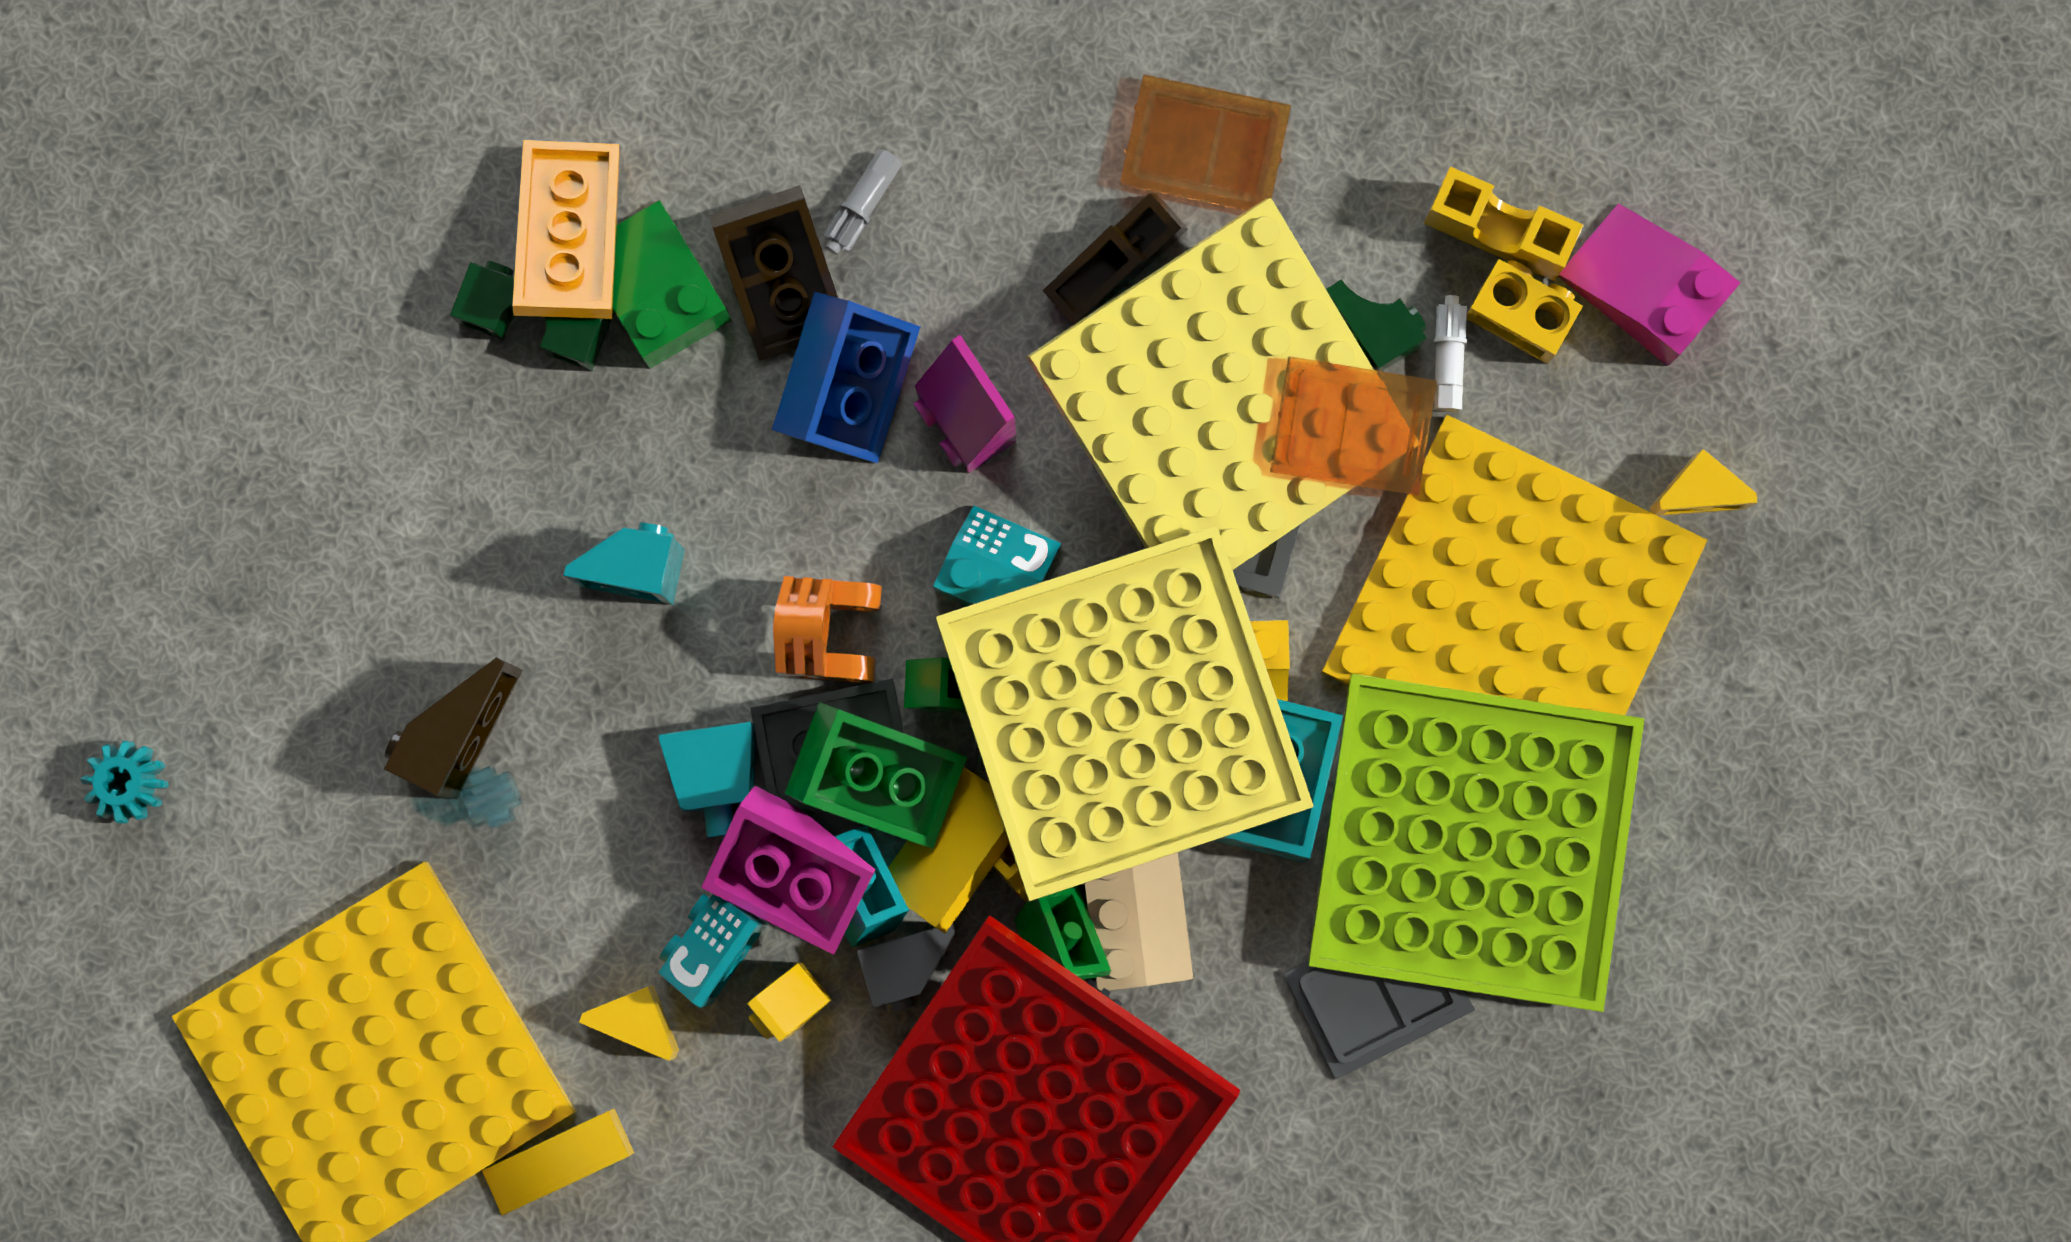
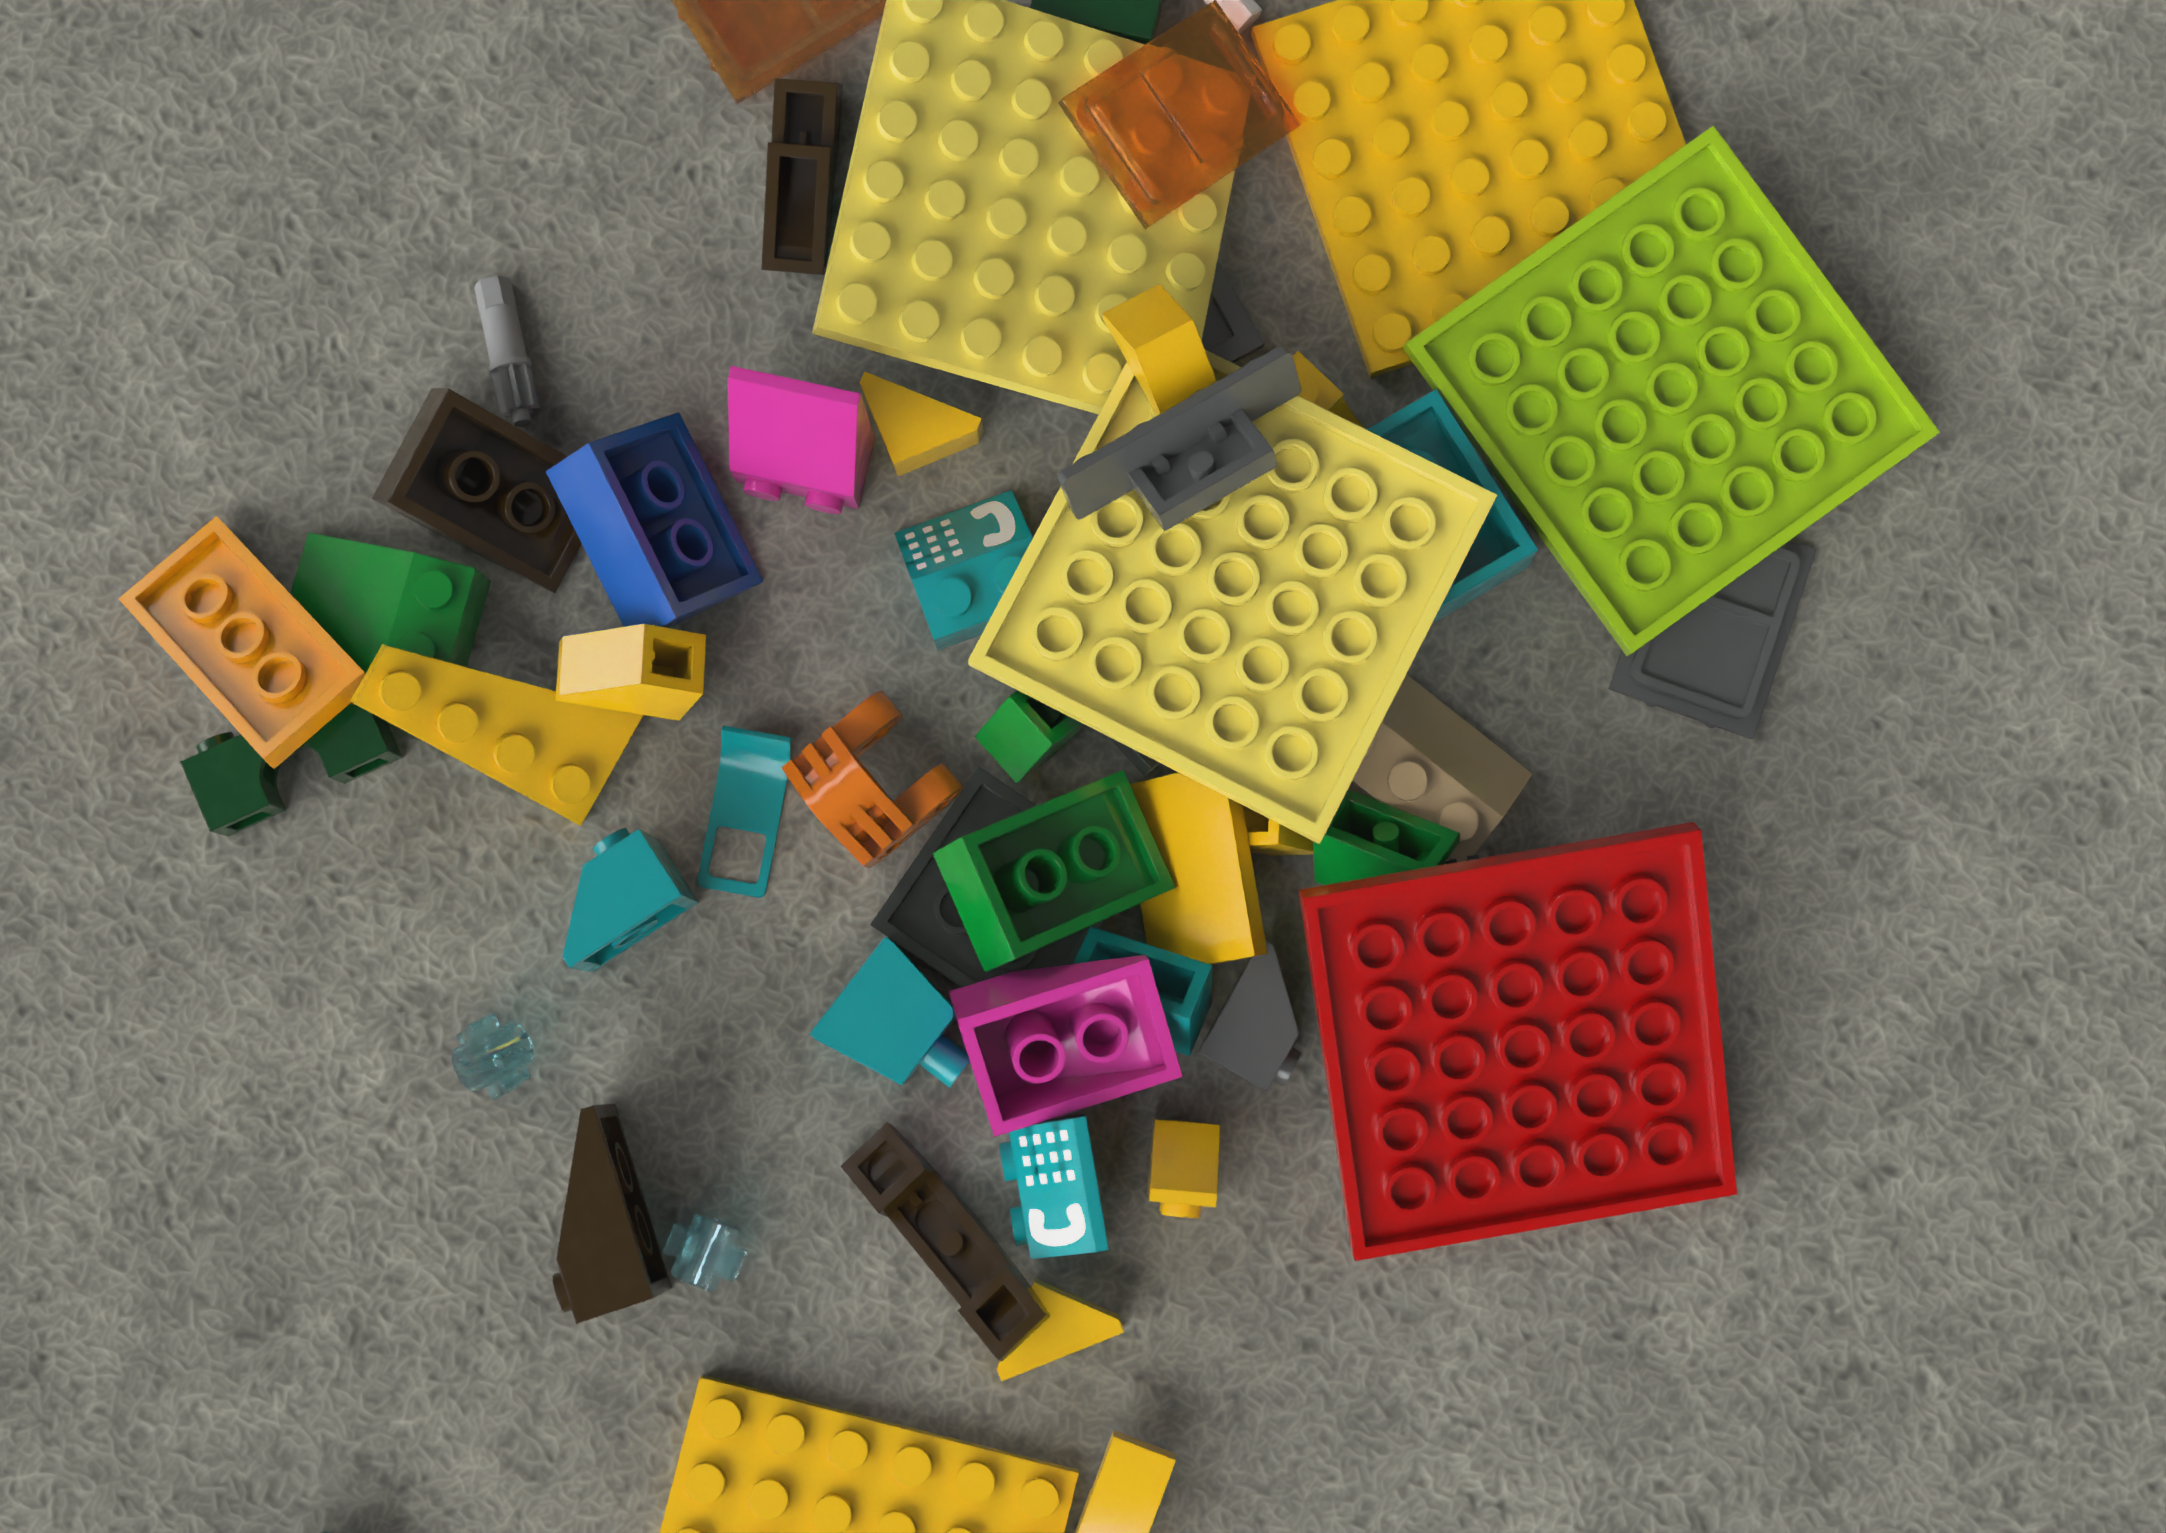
camera: 45 degrees left, 0 degrees up
(482, 581) = (493, 1056): none -> clear light blue gear
(627, 918) = (948, 1239): none -> dark brown slope
(662, 420) = (500, 727): none -> yellow wing
(753, 574) = (747, 798): none -> teal piece
(756, 445) = (633, 670): none -> yellow slope
(1039, 458) = (916, 426): none -> yellow slope
(1165, 620) = (1191, 450): none -> dark grey bracket
(1205, 552) = (1160, 347): none -> yellow slope

